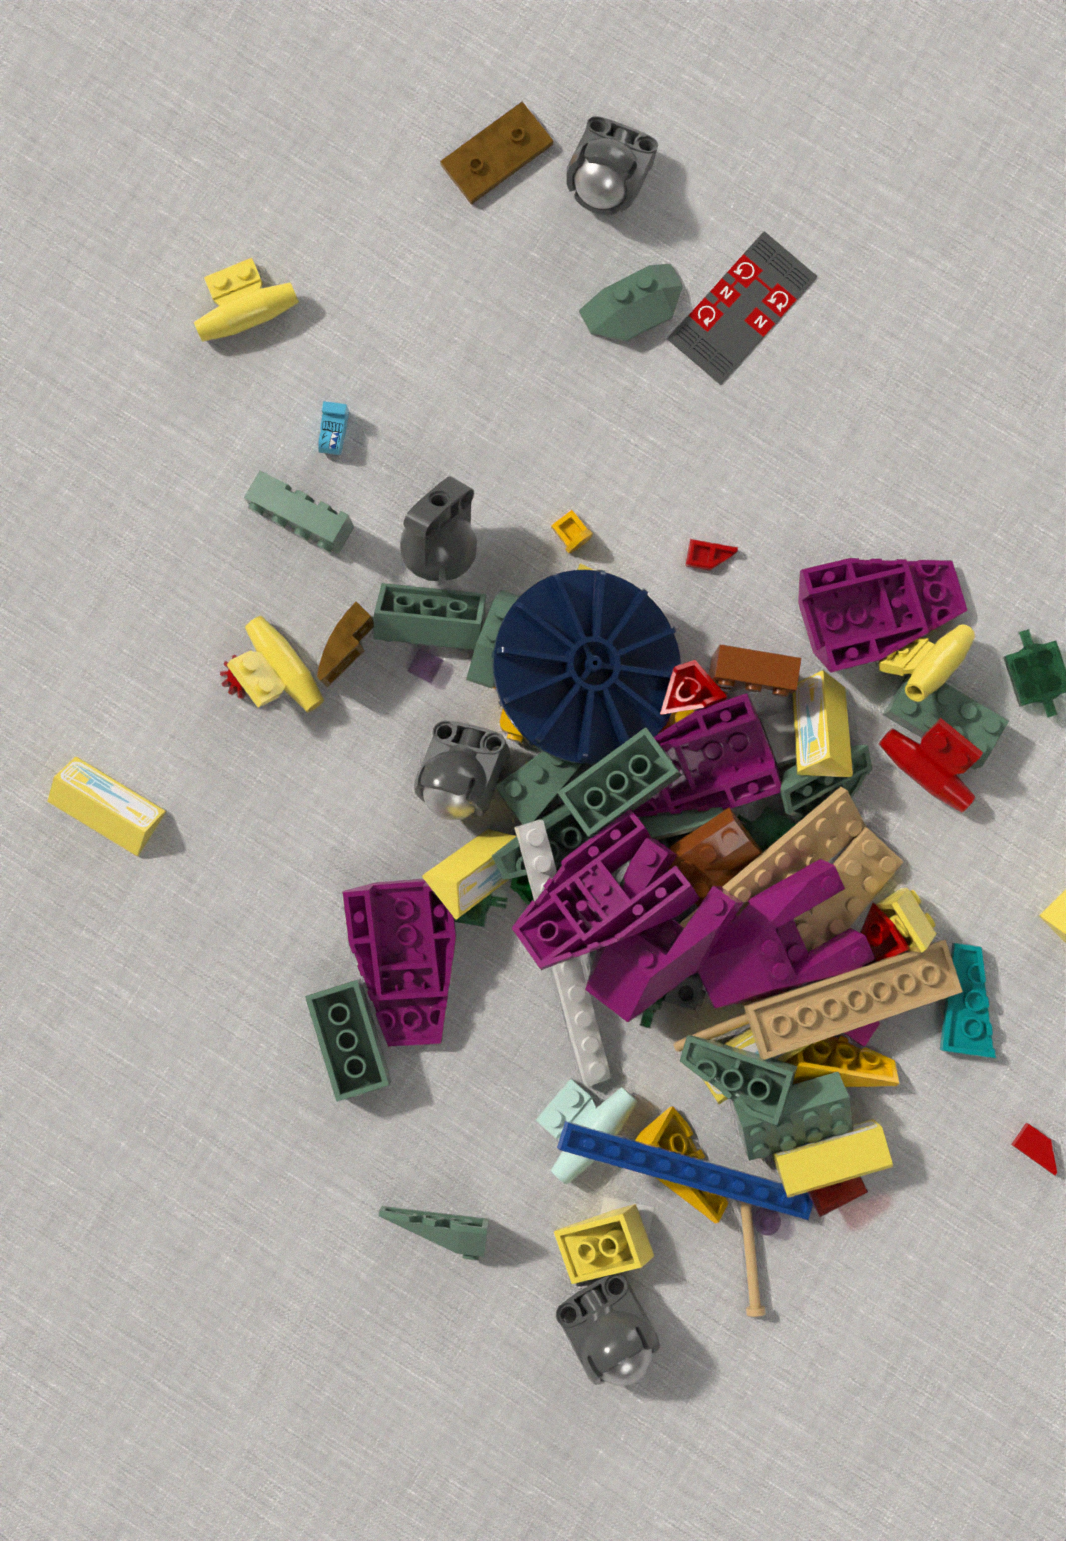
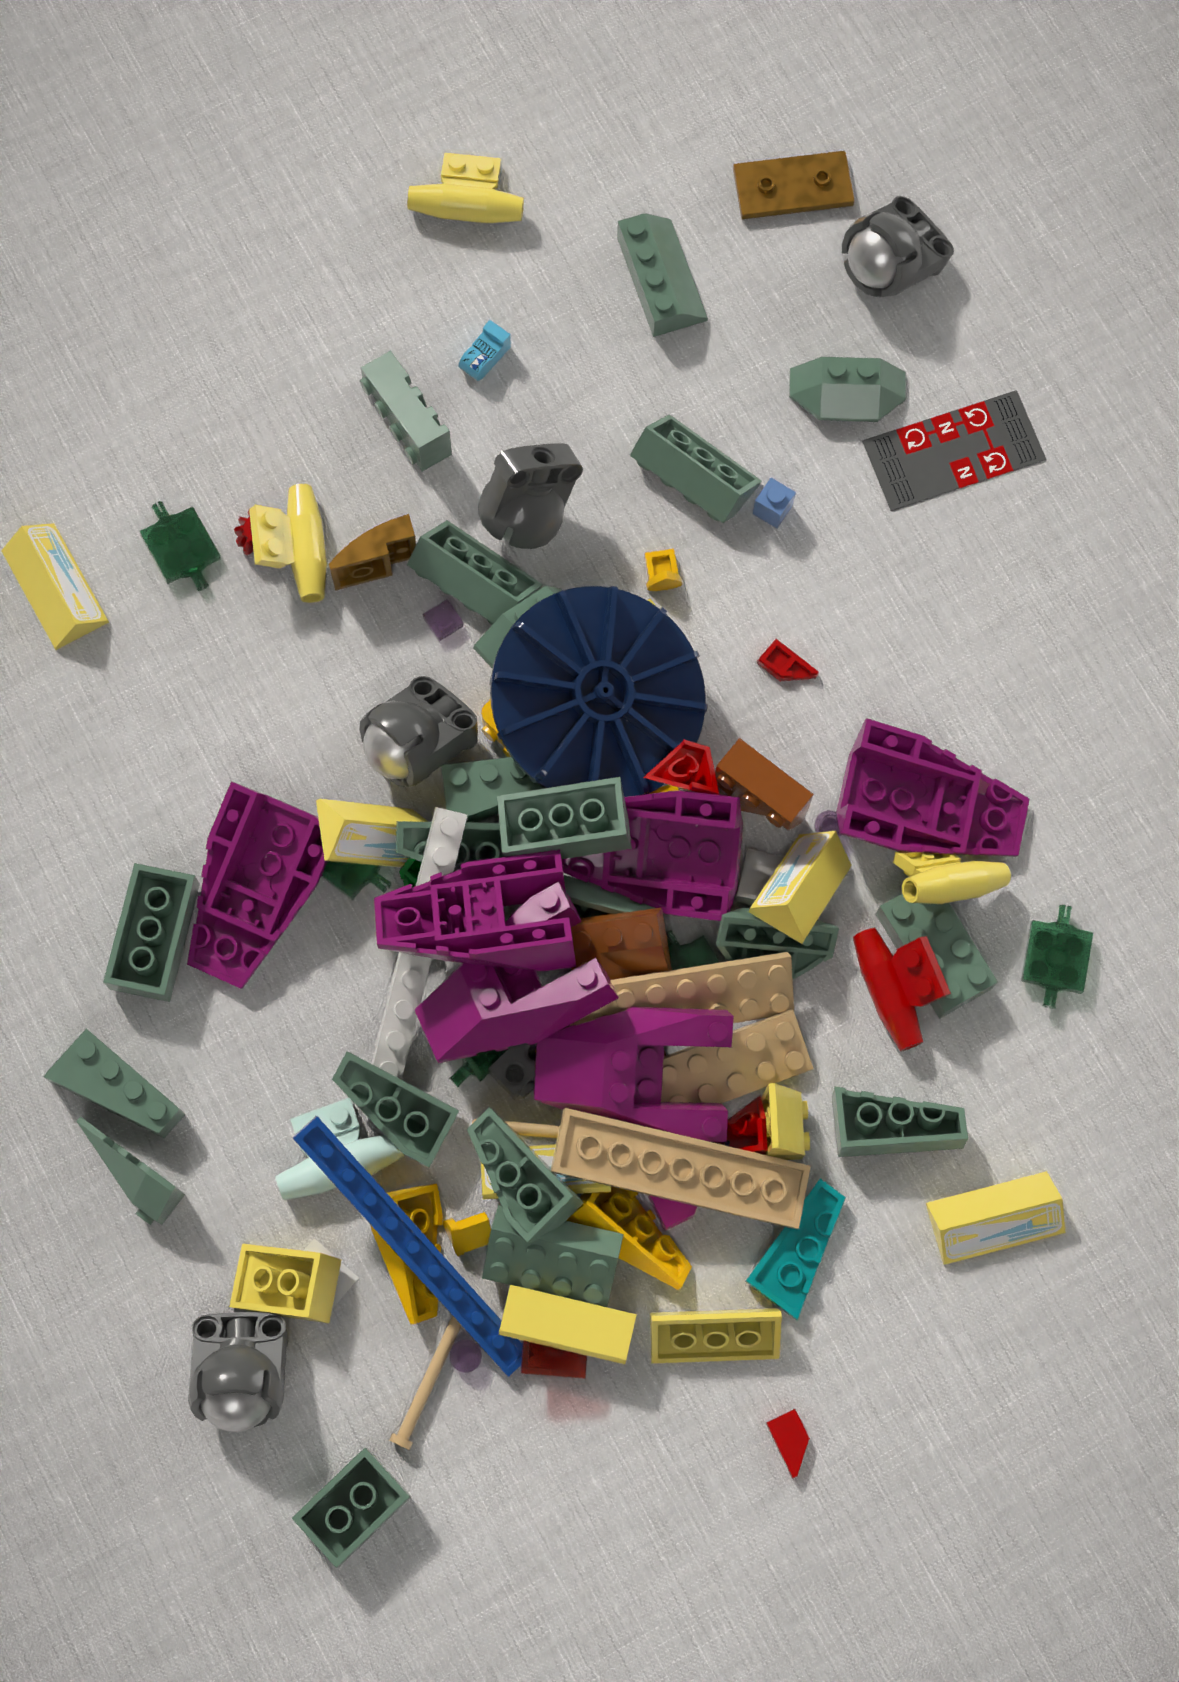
camera: 25 degrees right, 10 degrees down
(185, 719) = (180, 545): none -> clear green plate
(387, 1170) = (108, 1081): none -> sand green wedge
(433, 286) = (660, 273): none -> sand green slope
(552, 434) = (694, 468): none -> sand green slope
(620, 1070) = (402, 1112): none -> sand green wedge
(629, 429) = (774, 503): none -> medium blue brick
(718, 1131) = (468, 1232): none -> yellow tile
(750, 1382) = (351, 1507): none -> sand green brick
(810, 665) = (827, 822): none -> clear purple plate
(940, 1100) = (715, 1335): none -> light yellow slope
(979, 877) = (894, 1125): none -> sand green wedge

